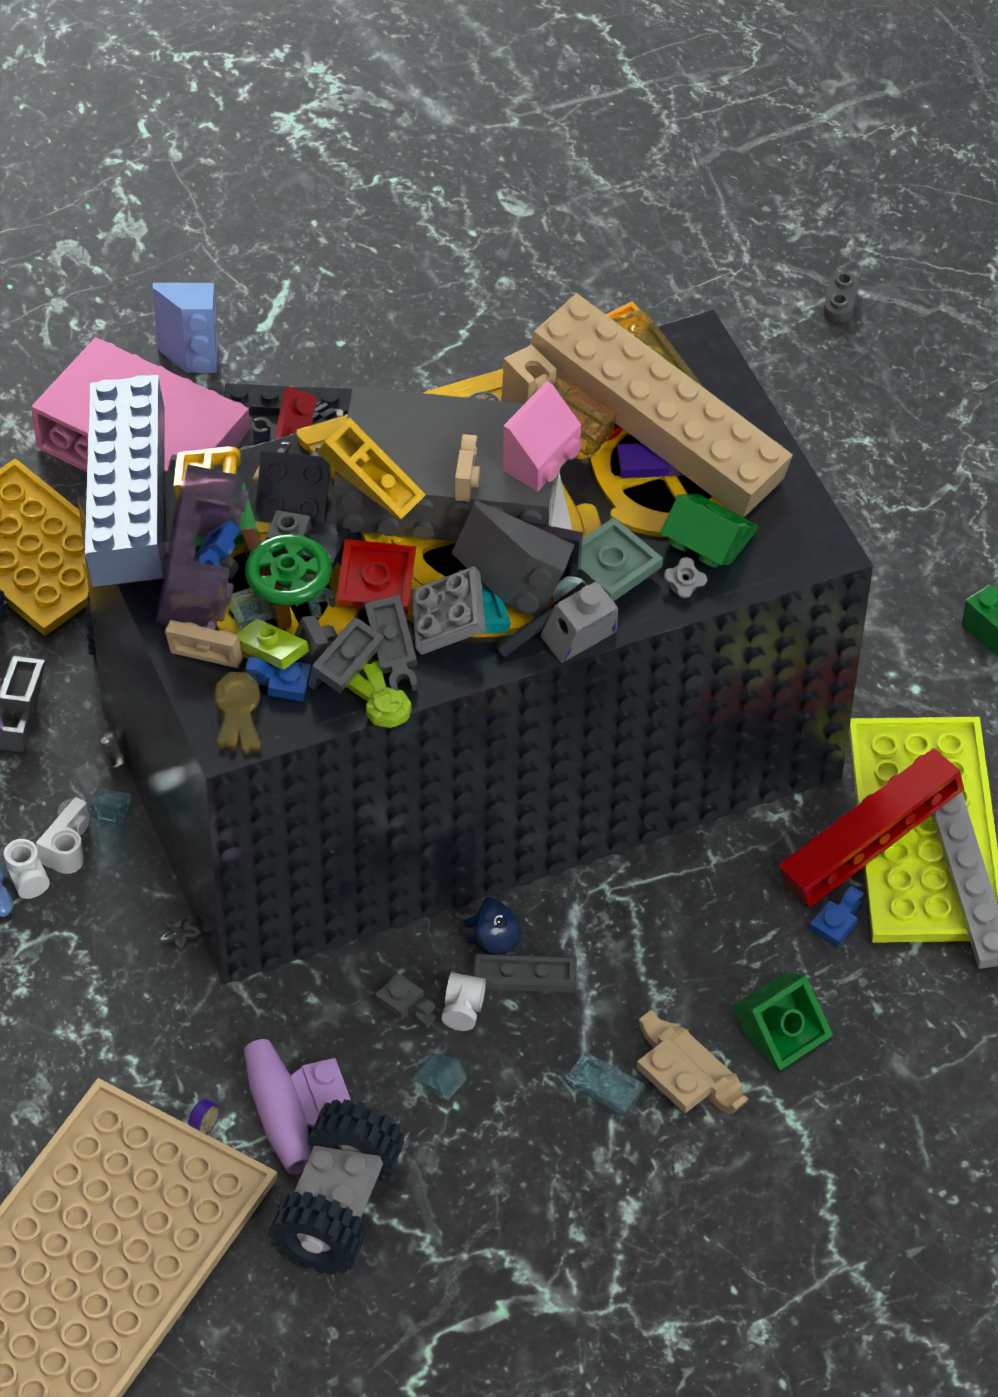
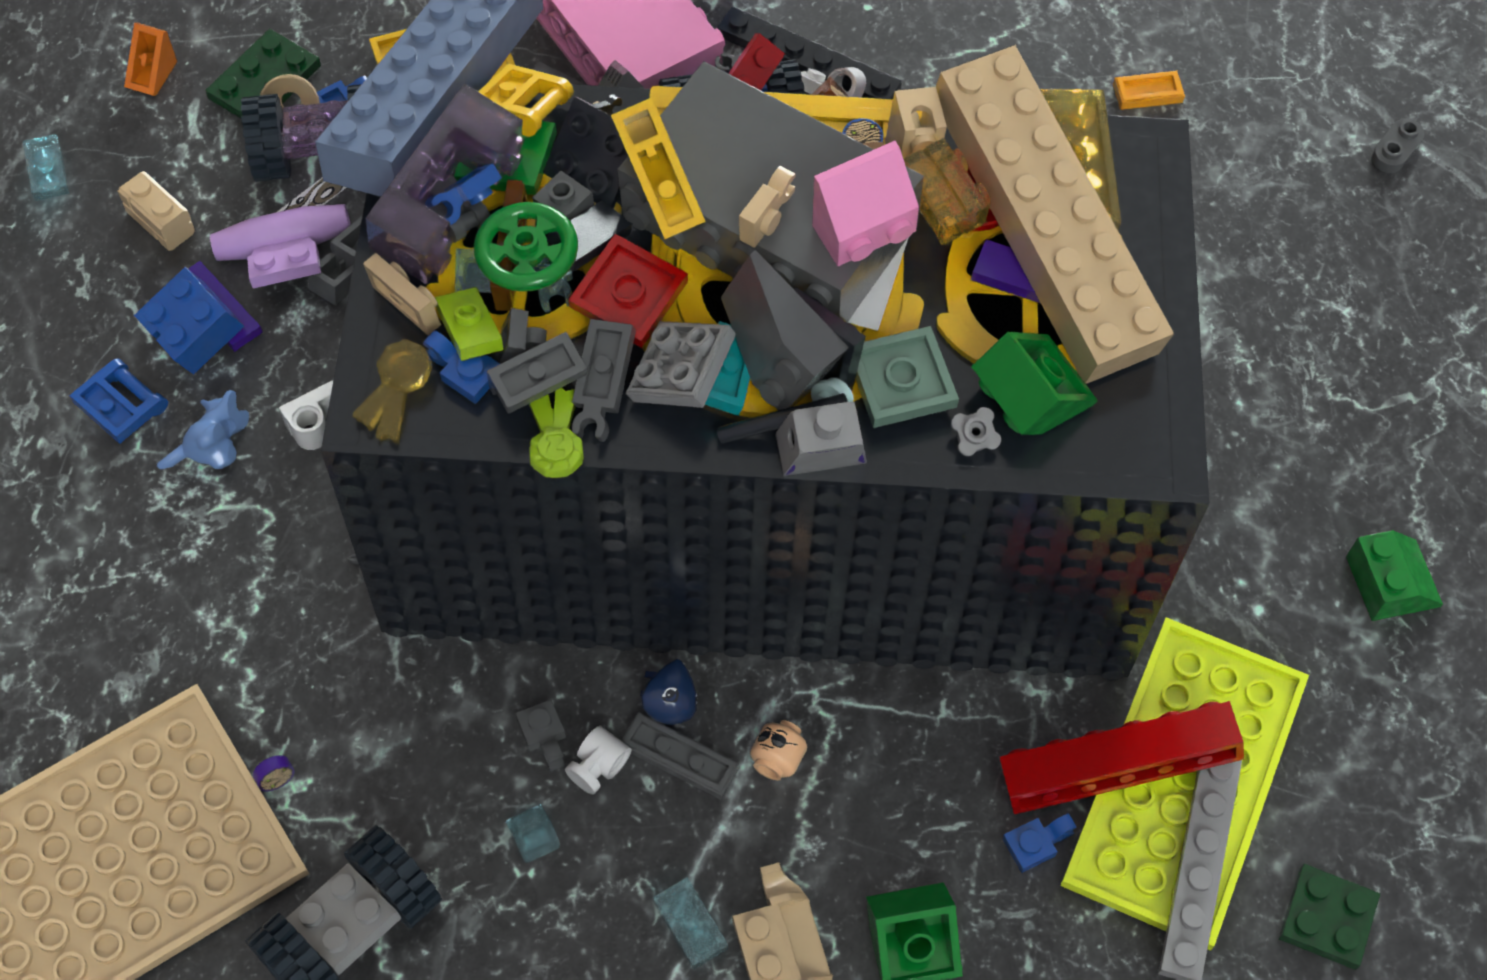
camera: 25 degrees right, 10 degrees up
(29, 876) = (260, 439): white piece -> none
(292, 1102) = (370, 795): lavender plate -> none
(603, 933) = (778, 750): none -> light nougat head

